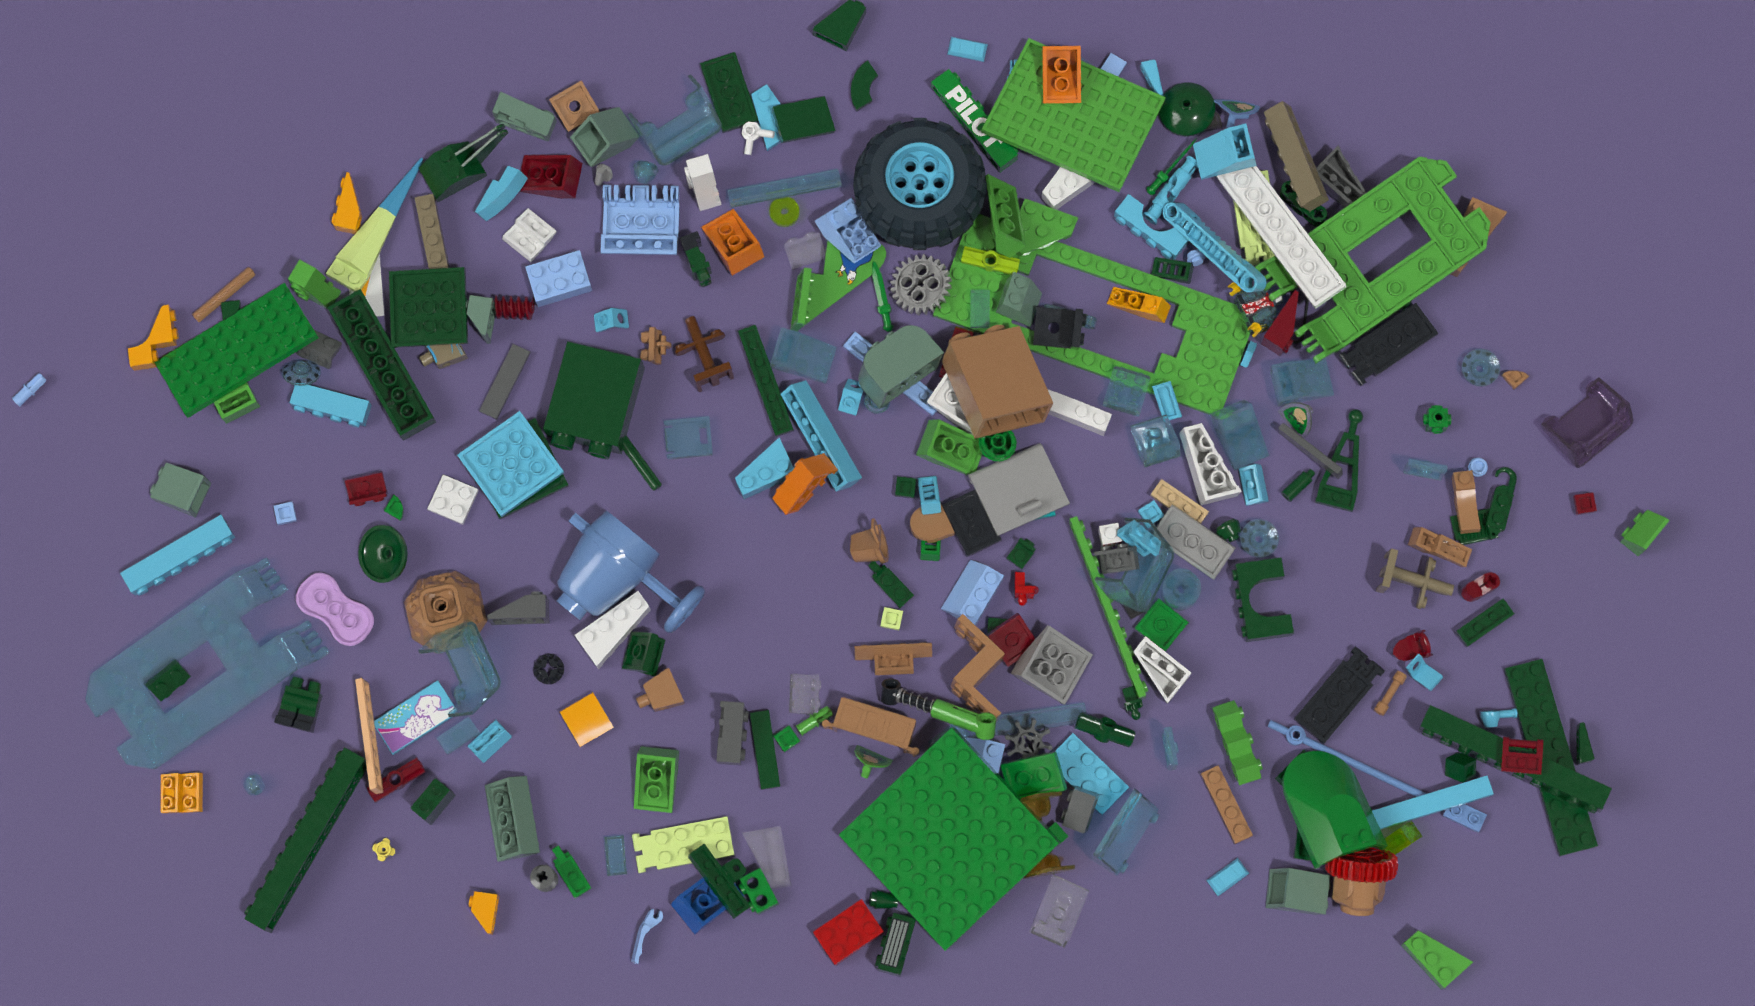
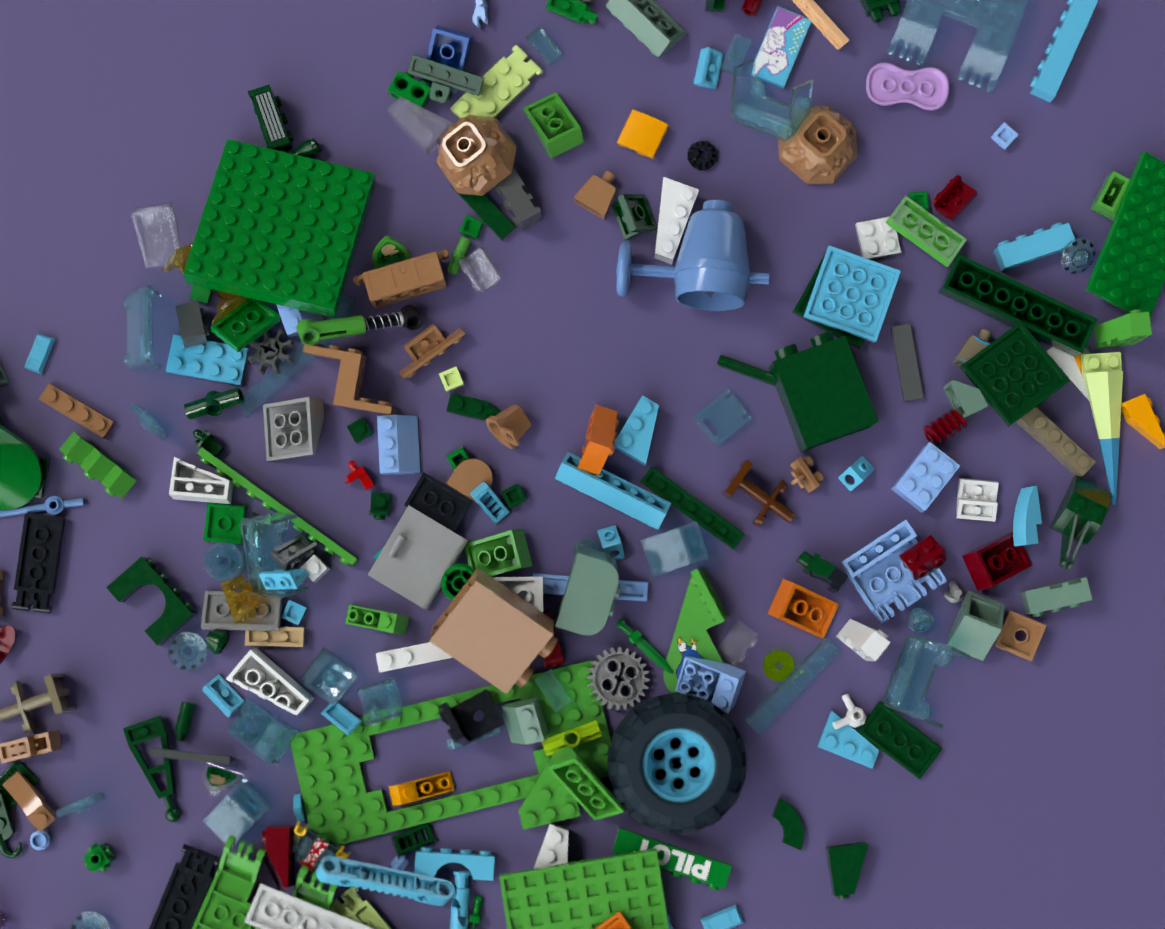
camera: 140 degrees right, 5 degrees up
(180, 489) = (1102, 96): sand green slope -> none
(321, 350) = (1074, 287): dark grey bracket -> none
(375, 553) = (901, 153): dark green dish -> none
(410, 476) = (926, 231): none -> bright green plate
(525, 610) = (749, 186): dark grey slope -> none
(607, 215) = (923, 557): none -> dark red bracket
(723, 789) = (476, 154): none -> medium nougat rock
(803, 119) = (818, 757): dark green tile -> none
(848, 932) = (316, 106): red brick -> none
(1012, 638) = (339, 426): dark red plate -> none
(1086, 461) = (377, 620): none -> bright green slope
(1192, 550) = (236, 600): none -> clear yellow brick

